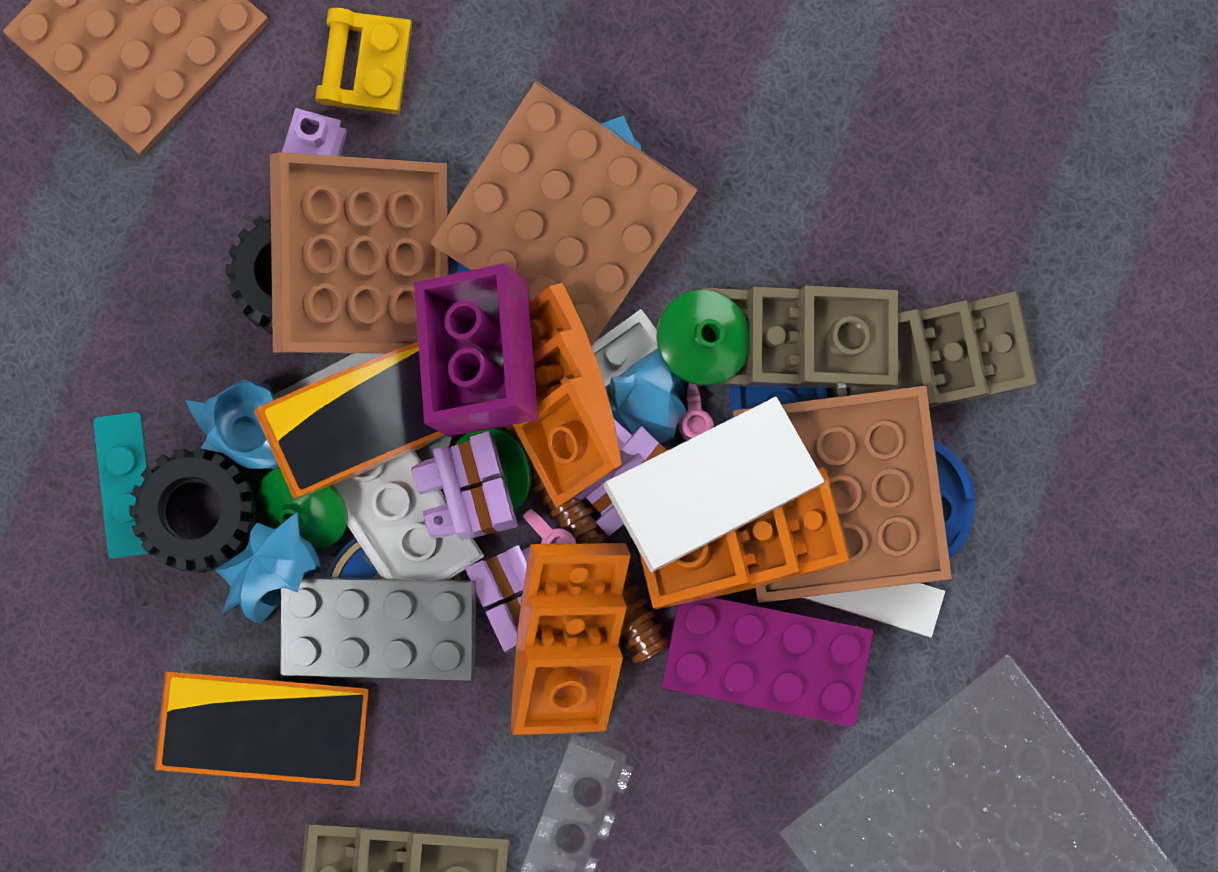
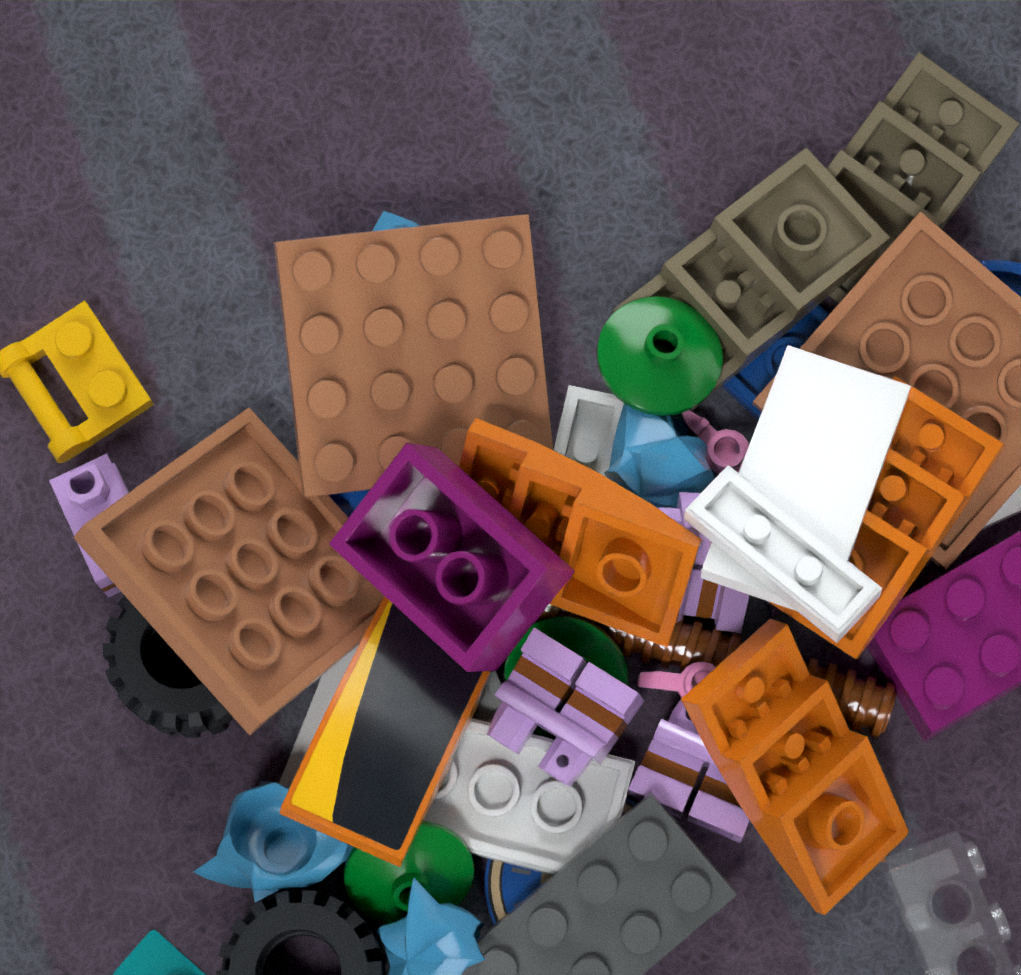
camera: 30 degrees left, 5 degrees down
(658, 513) = (782, 553): none -> white tile

